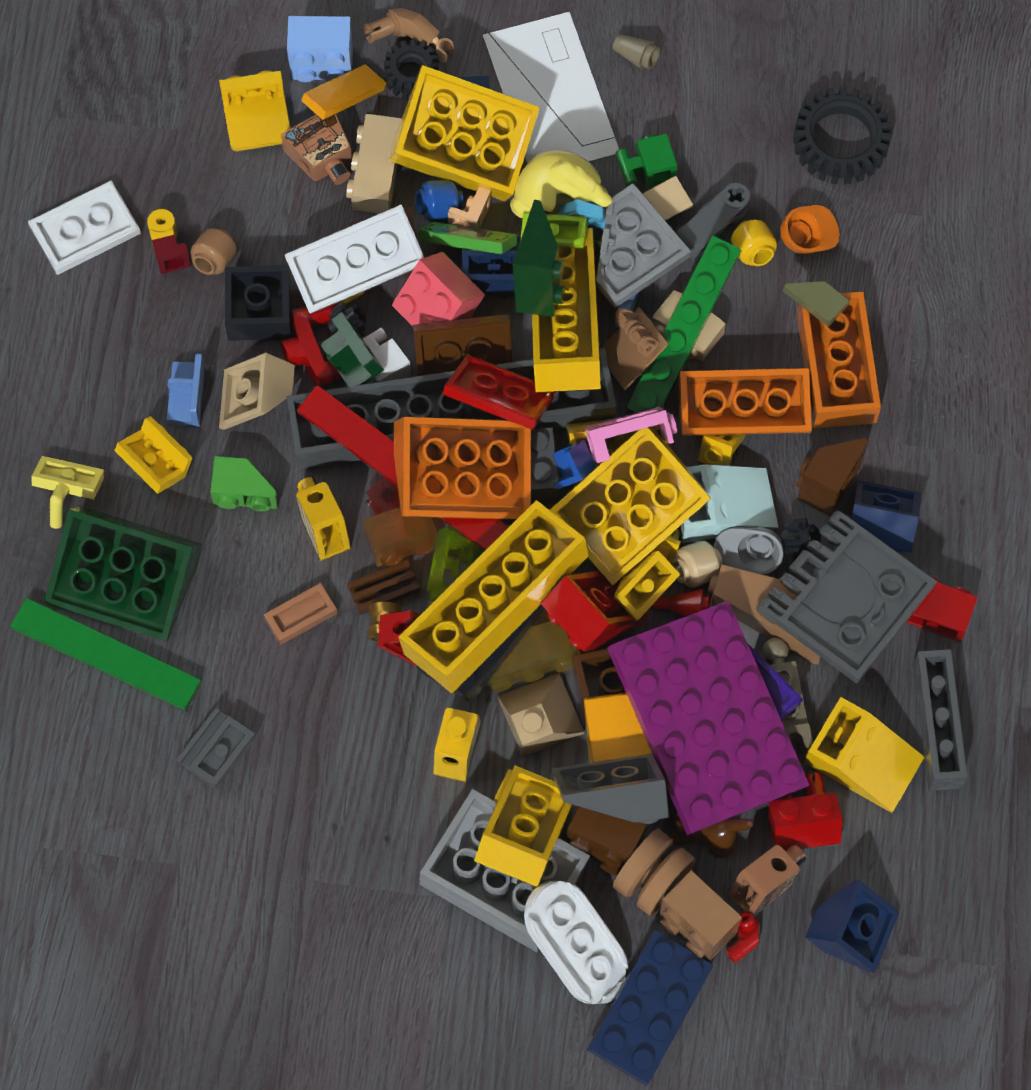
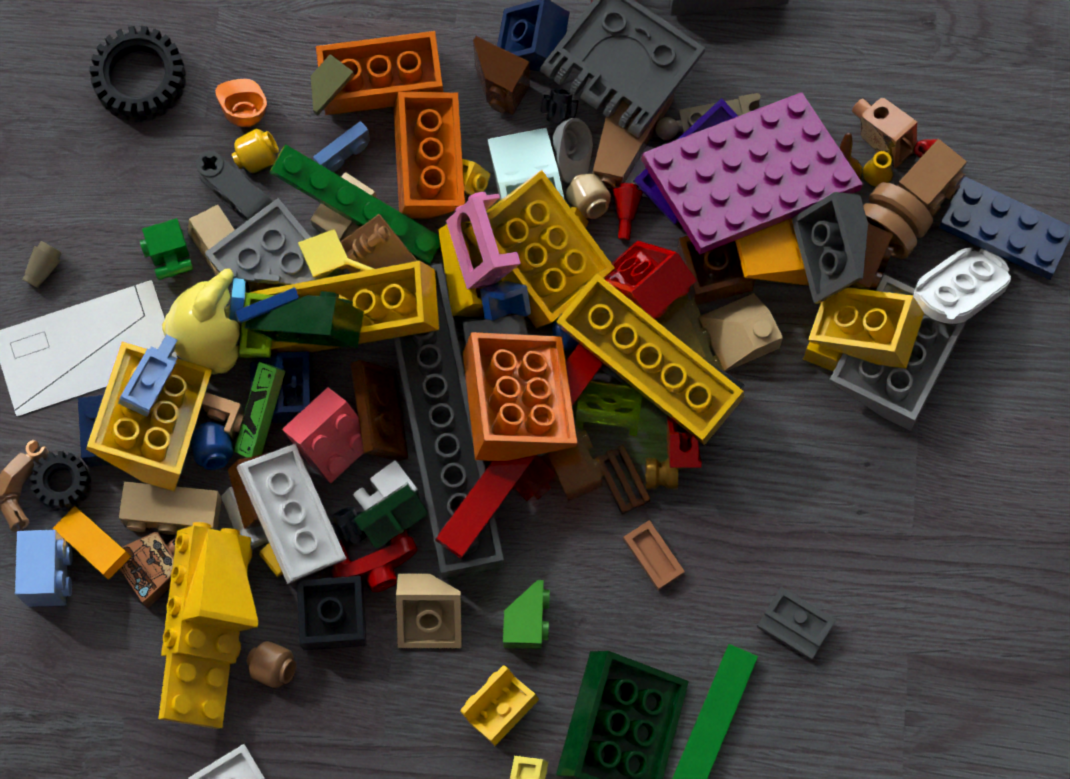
camera: 90 degrees left, 5 degrees up
(163, 236) = (259, 716): leg -> none
(186, 392) = (426, 680): medium blue panel -> none
(254, 110) = (110, 633): yellow bracket -> none
(255, 186) = (203, 622): none -> yellow wedge
(321, 511) = (570, 532): yellow torso -> none
(457, 741) = (777, 400): yellow torso -> none
(497, 127) = (149, 377): none -> medium blue hinge
(498, 392) = (439, 365): red tile -> none
(561, 224) = (266, 305): none -> blue tile
(627, 294) = (326, 254): none -> light yellow piece
(645, 584) = (618, 236): yellow slope -> none
(719, 877) = (878, 169): none -> yellow cone
(761, 332) = (350, 142): none -> medium blue plate
(806, 820) = (830, 96): red brick -> none
(853, 926) = (920, 62): dark blue slope -> none
(864, 755) = (763, 54): yellow slope -> none

